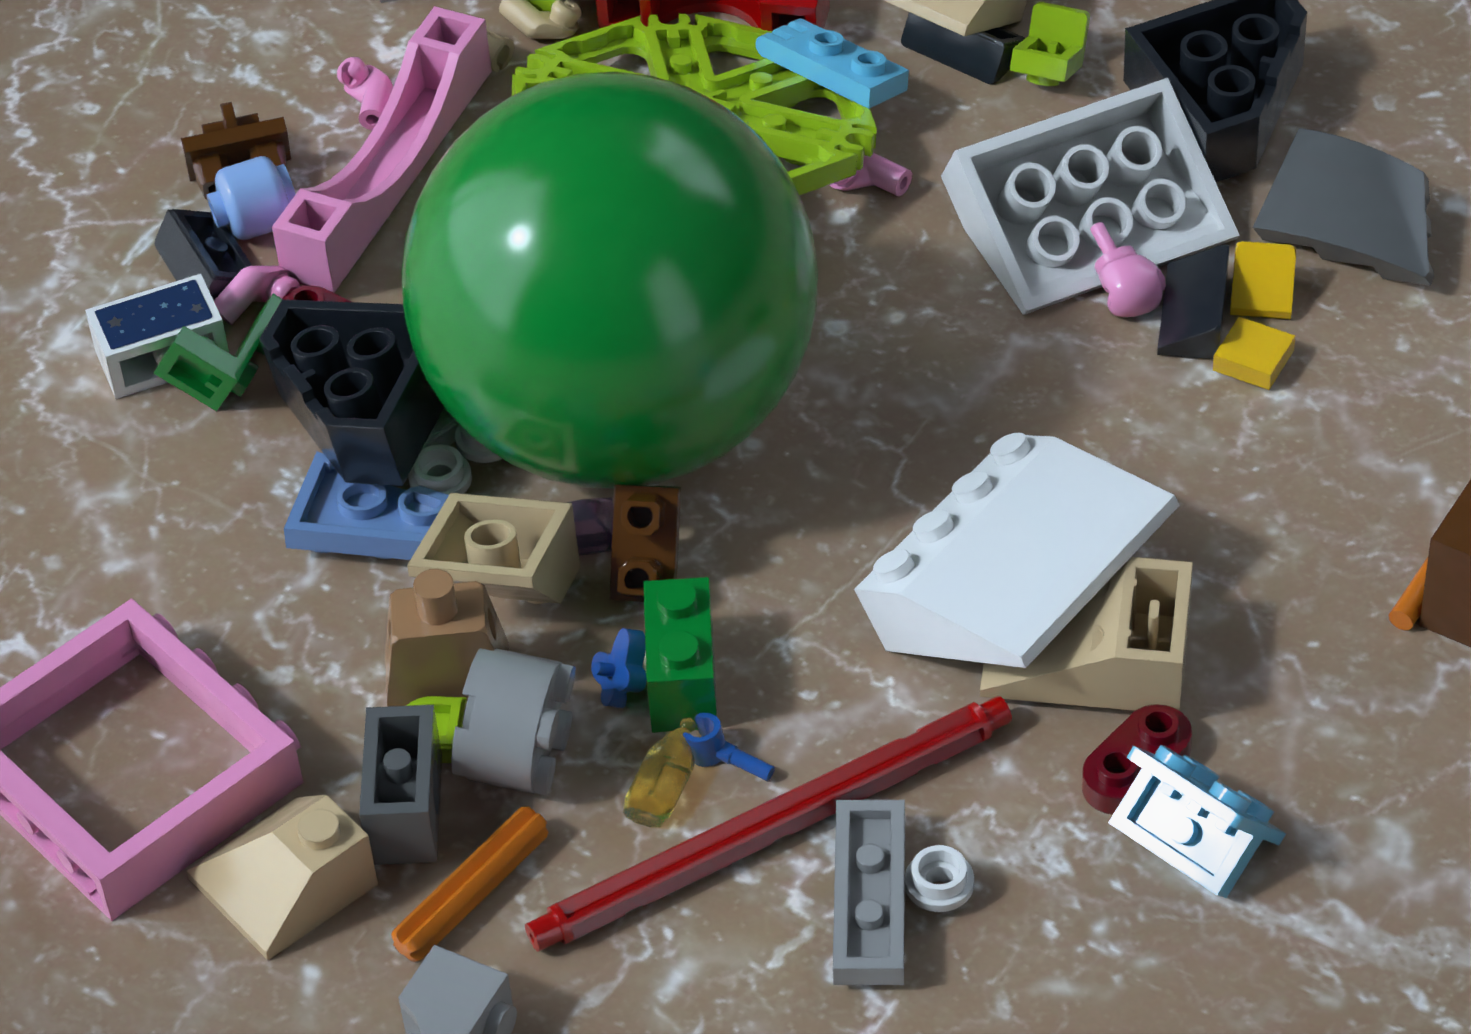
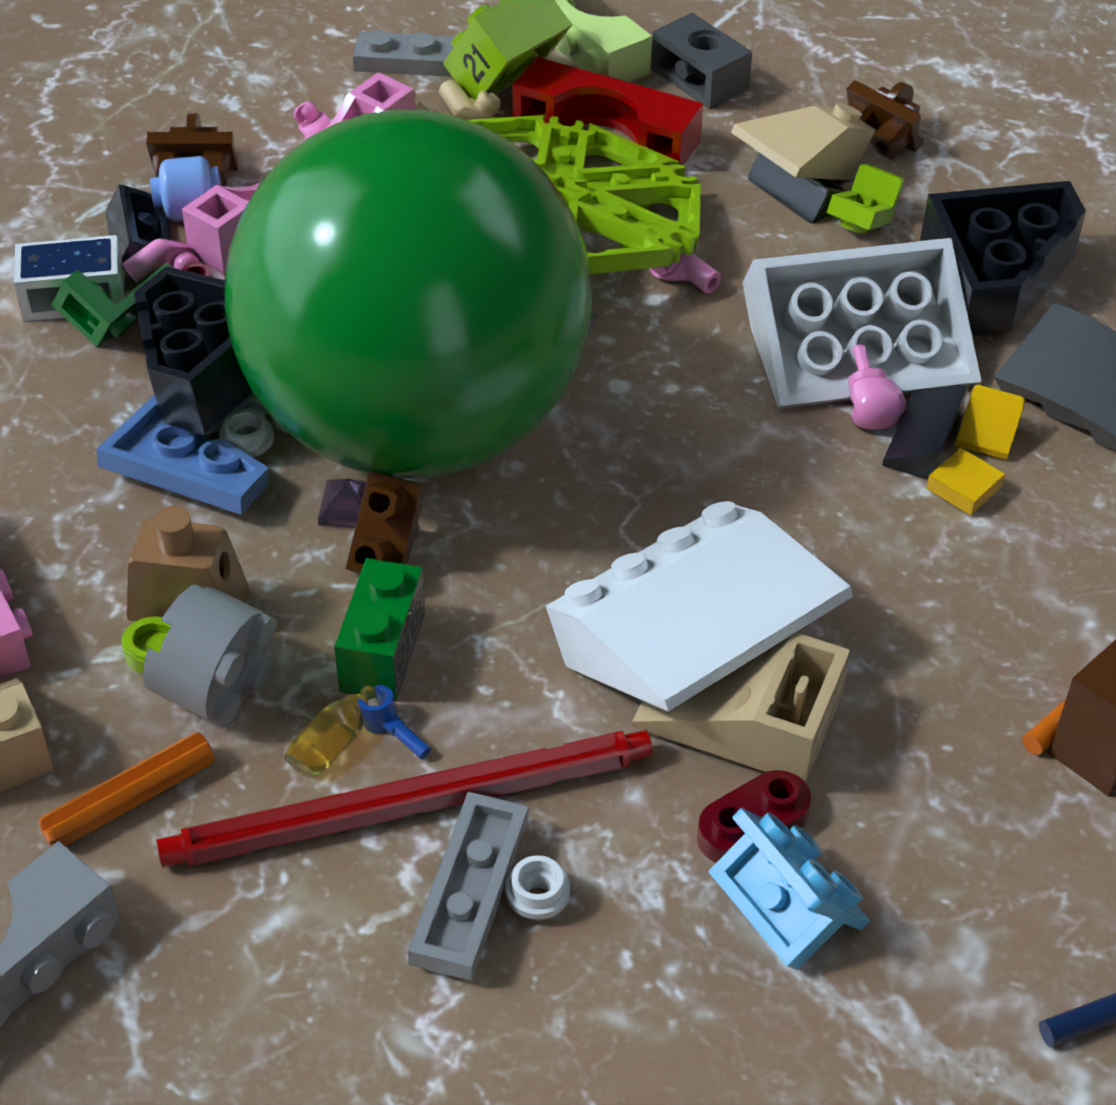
camera: 10 degrees right, 0 degrees up
(401, 784) = (94, 689): dark grey brick -> none
(505, 543) = (262, 504): tan slope -> none
(621, 669) = (324, 629): blue piece -> none
(834, 62) = (684, 178): medium azure hinge -> none

